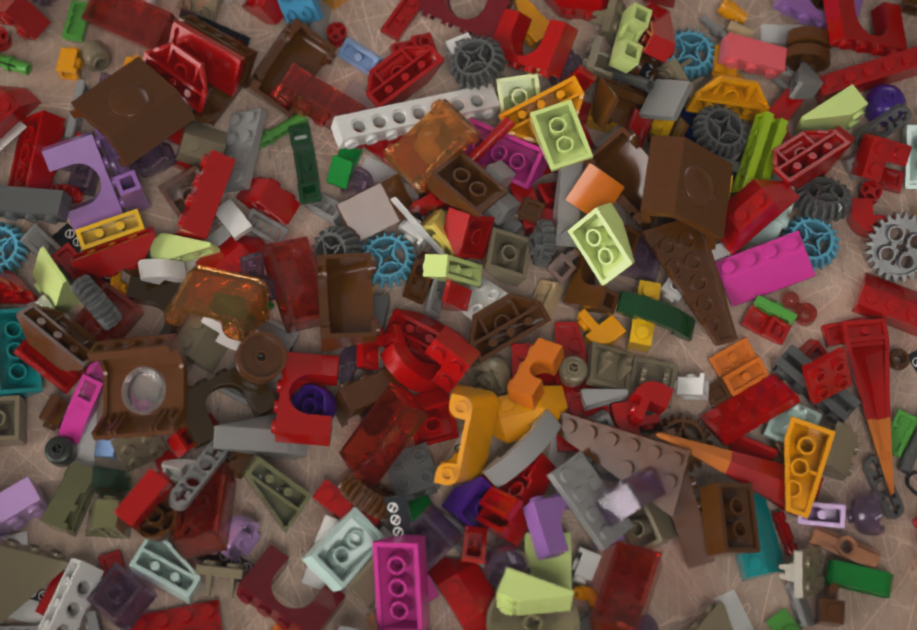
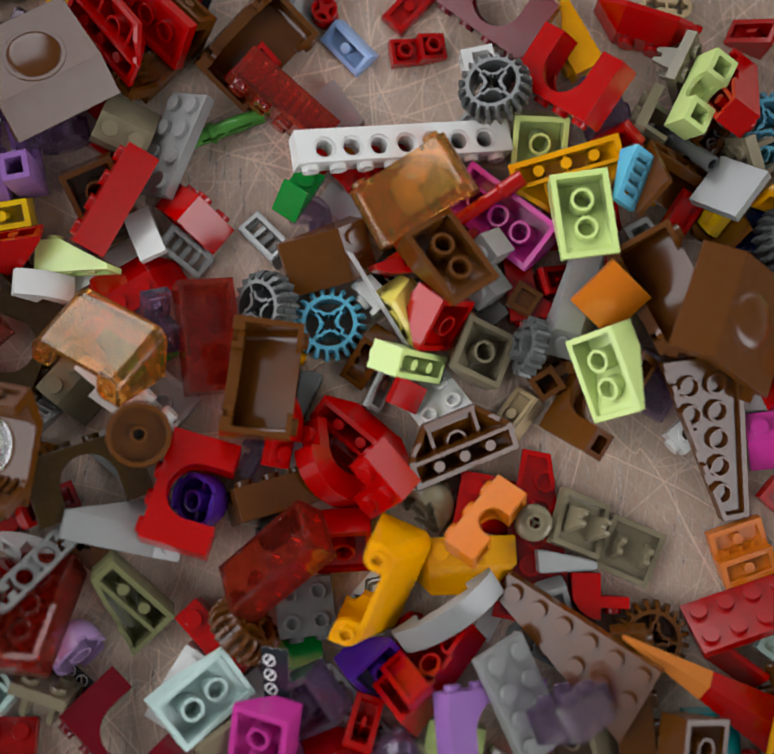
camera: 10 degrees right, 10 degrees up
(305, 163) = (252, 178): dark green slope -> none
(402, 74) = (395, 84): red wedge -> none
(595, 91) = (632, 166): none -> medium azure slope
(606, 333) = (582, 477): light orange brick -> none
(642, 331) = (637, 464): yellow brick -> none
(648, 396) = (620, 576): red brick -> none
(657, 313) = (653, 468): dark green slope -> none
(692, 387) = (679, 569): white brick -> none
(718, 393) = (707, 580): reddish brown tile -> none

